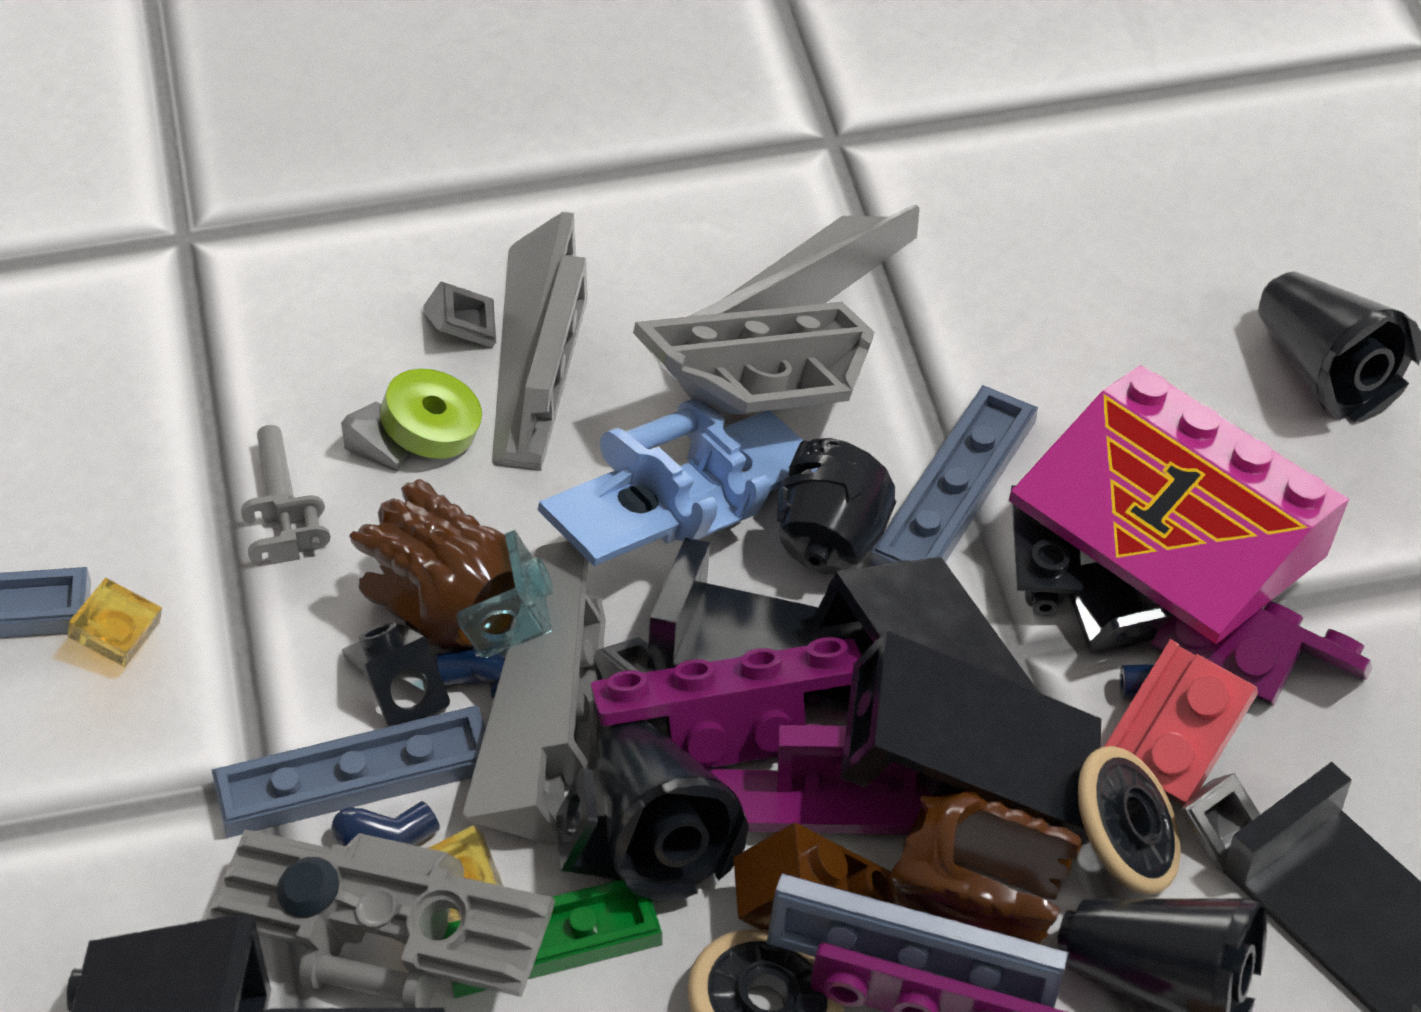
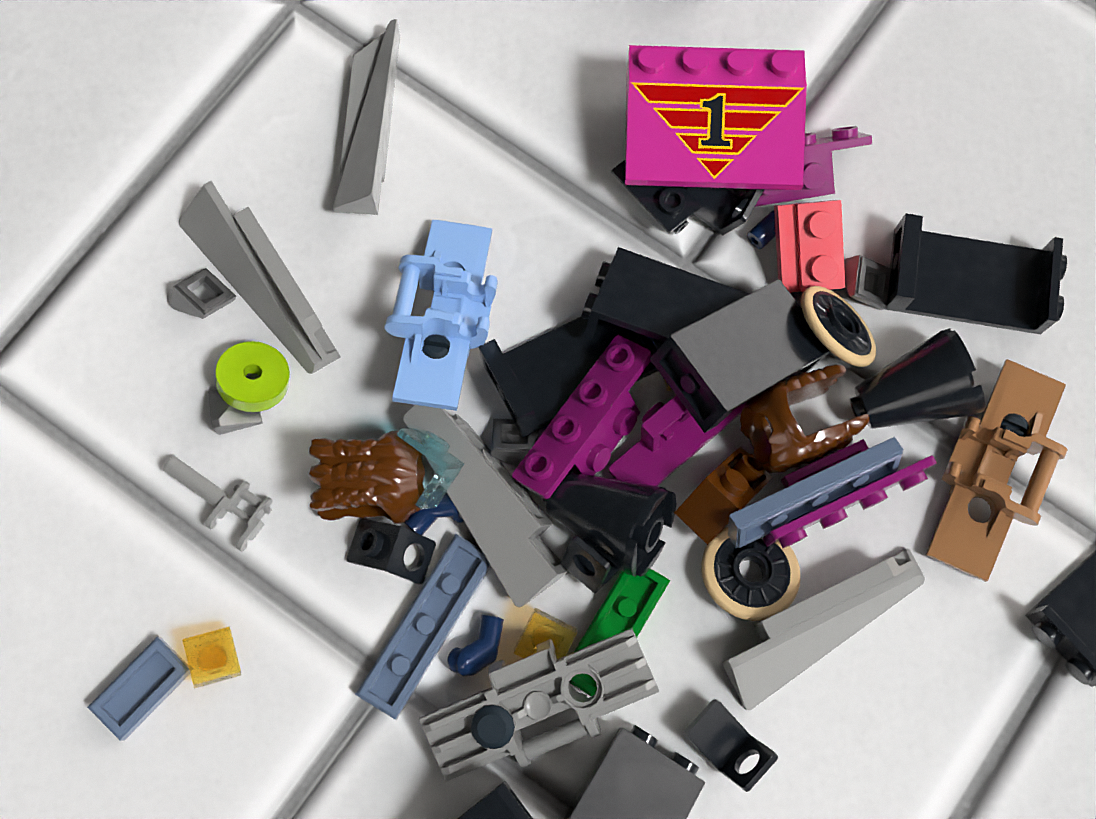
camera: 45 degrees left, 25 degrees up
(762, 356) = (419, 196): light grey wedge -> none
(839, 510) = (539, 264): black helmet -> none
(957, 479) = (569, 187): sand blue tile -> none

